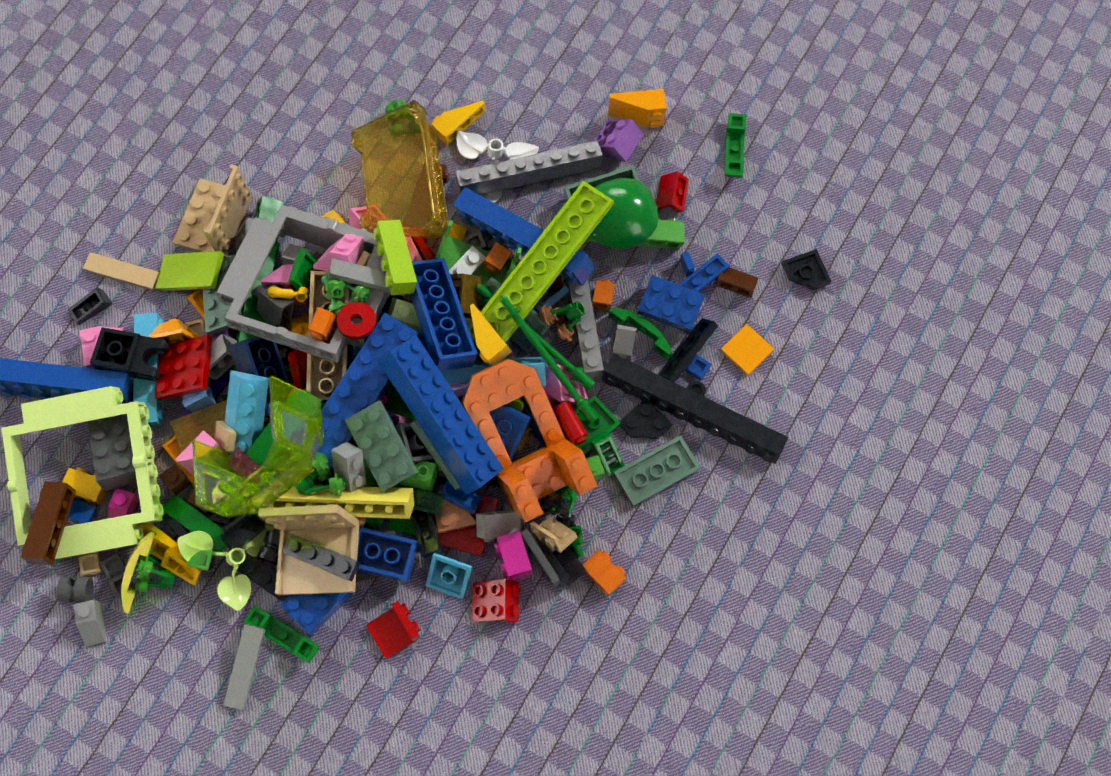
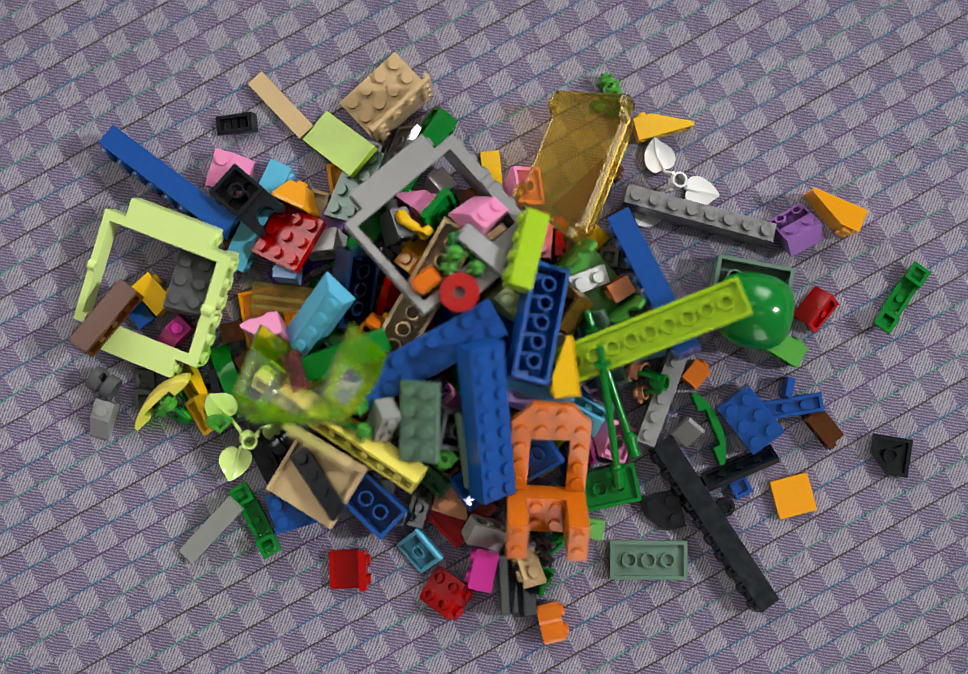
camera: 30 degrees right, 15 degrees up
(90, 564) = (125, 367): tan tile -> none
(225, 436) = (292, 325): tan tile -> none
(570, 423) = (597, 479): red brick -> none
(602, 442) = (612, 522): green slope -> none

